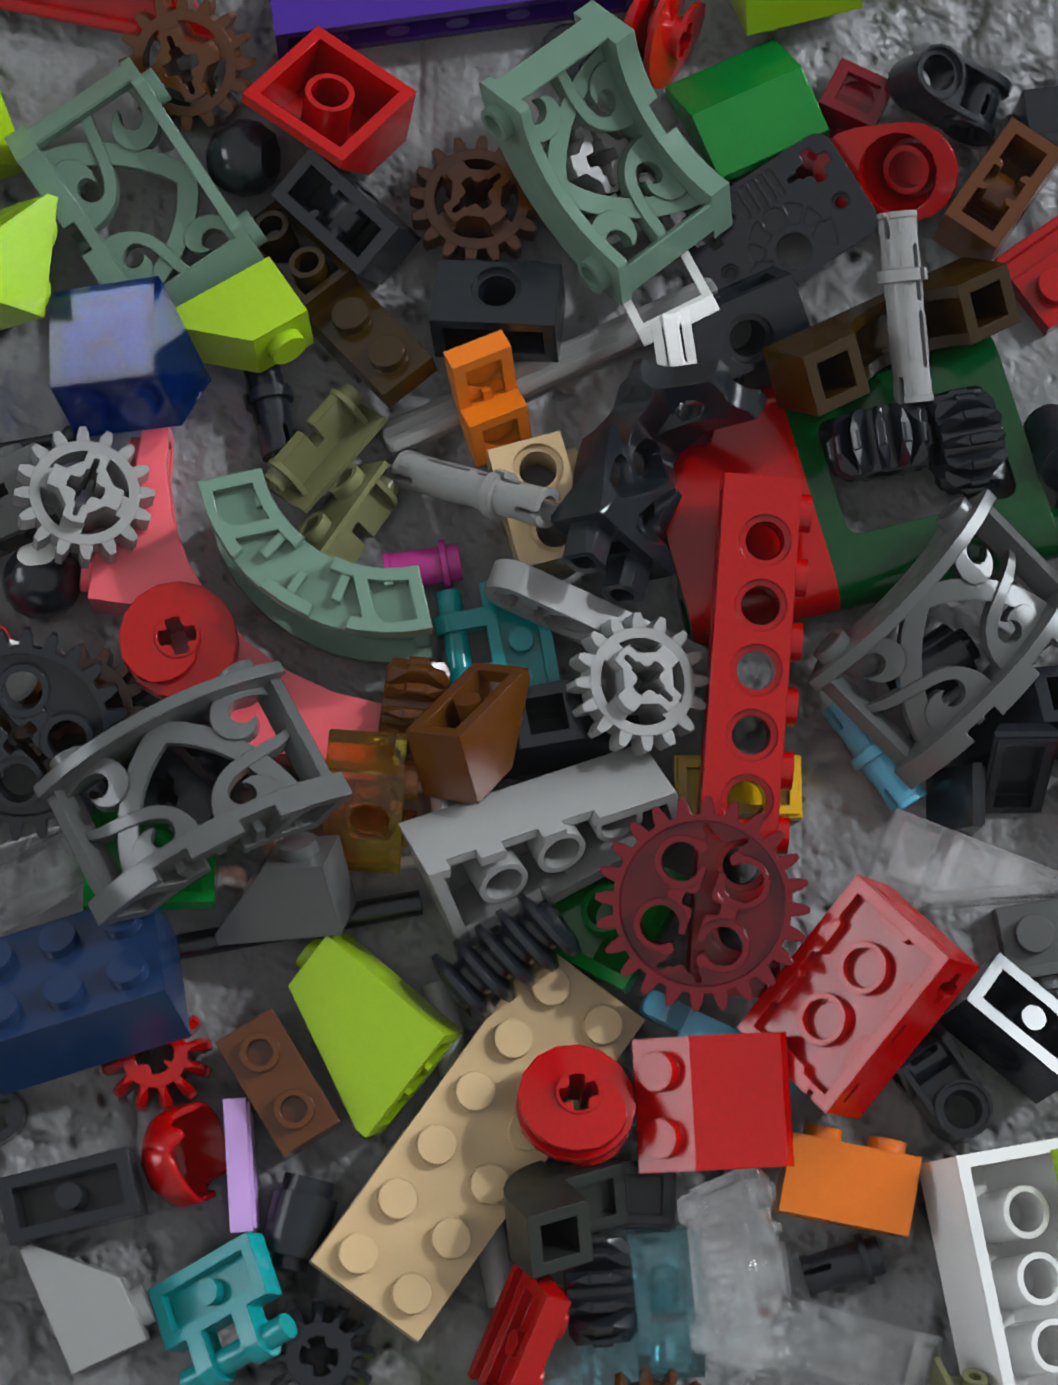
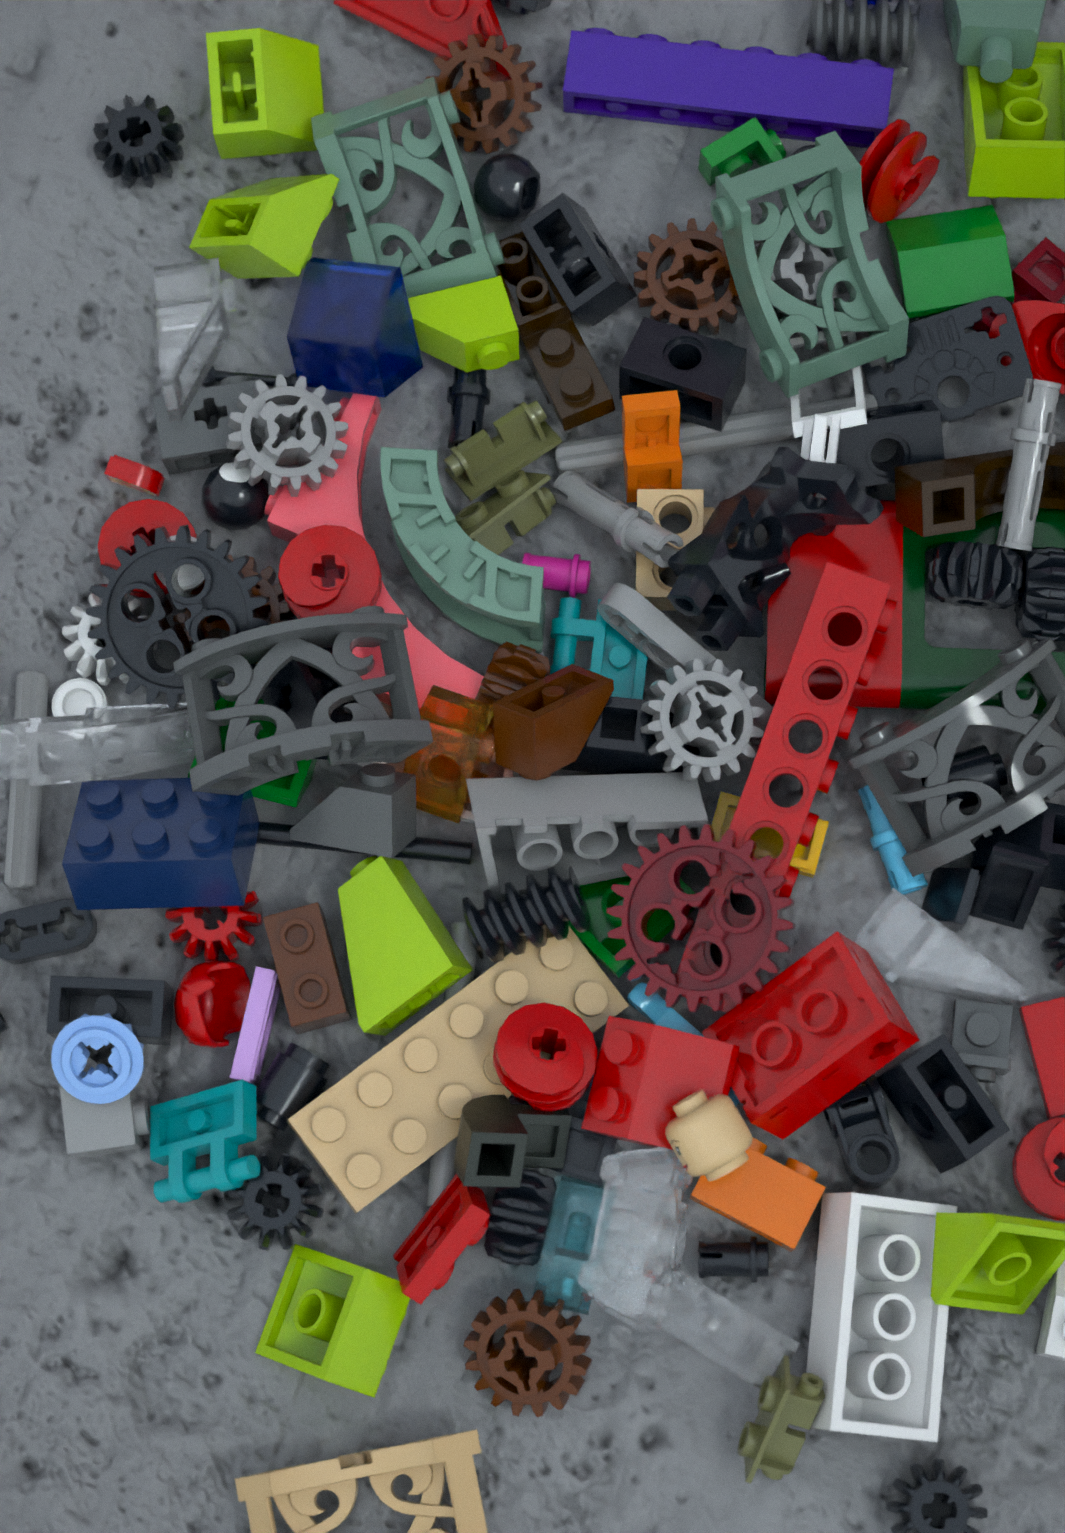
camera: 30 degrees right, 0 degrees up
(89, 1282) = (100, 1083): none -> light blue gear
(335, 102) = (595, 161): red slope -> none
(483, 52) = (738, 149): none -> green bracket
(786, 1141) = (708, 1135): none -> tan head

